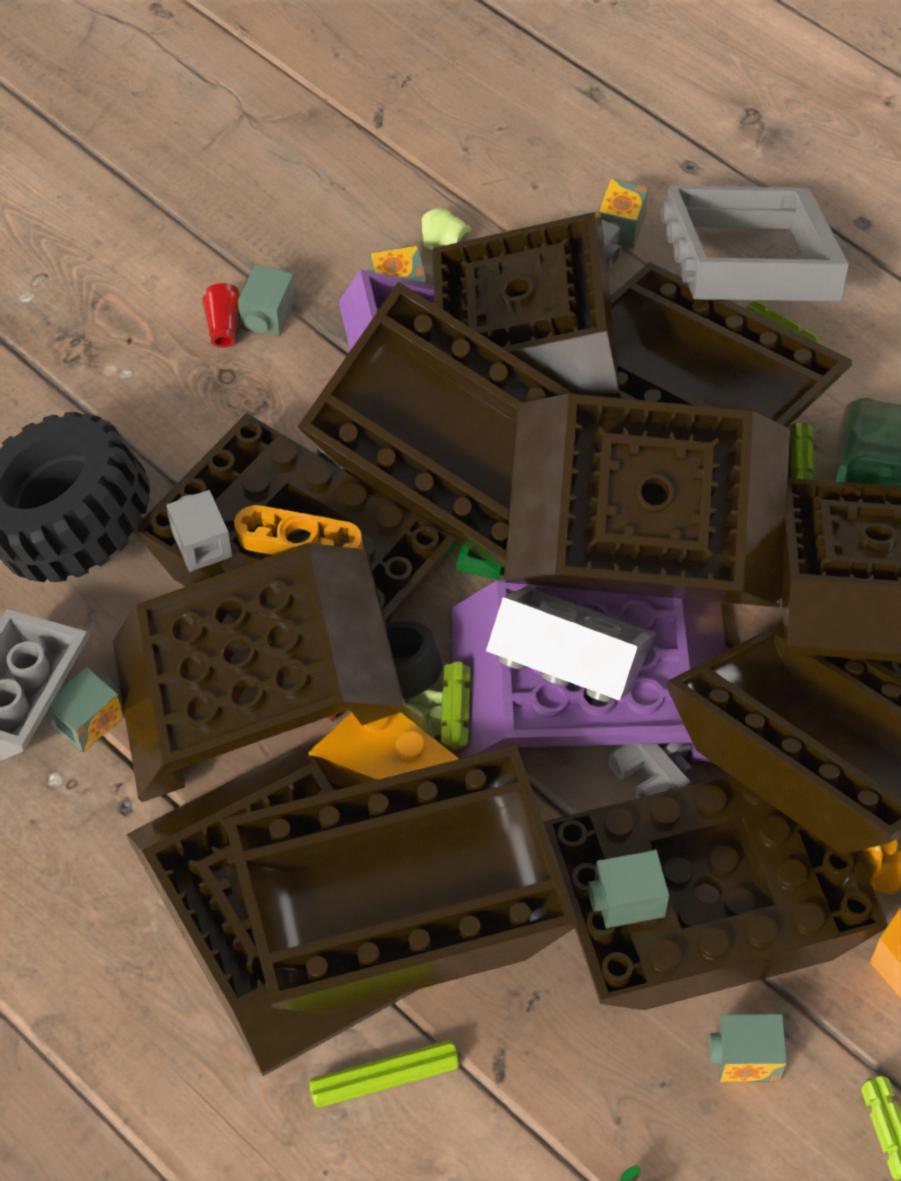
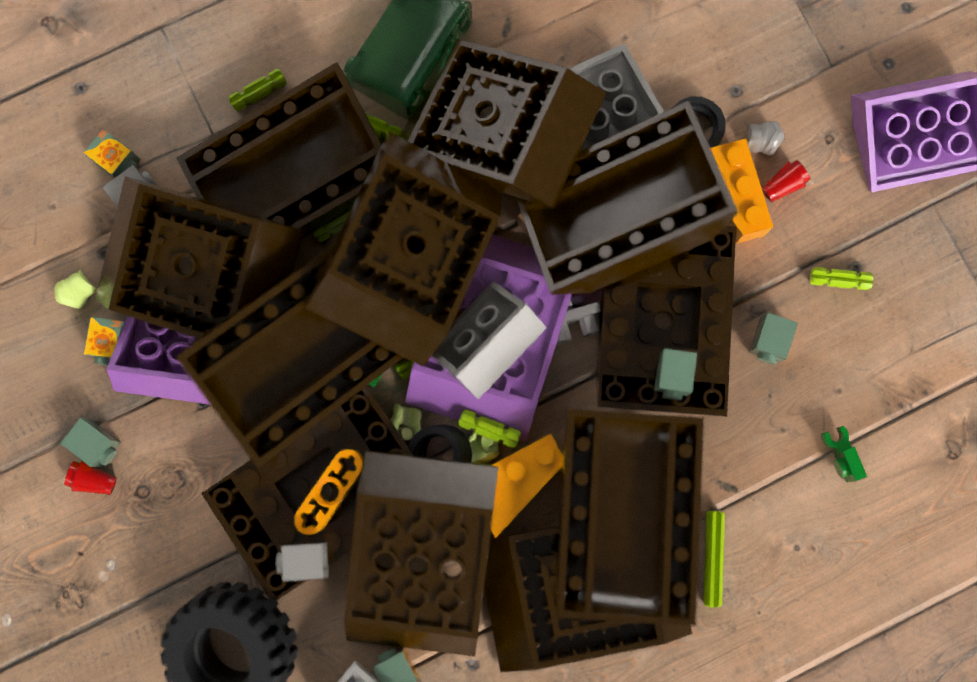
camera: 70 degrees left, 25 degrees up
(425, 609) = (406, 421): none -> yellowish green arm
(814, 278) = (147, 63): light grey window -> none

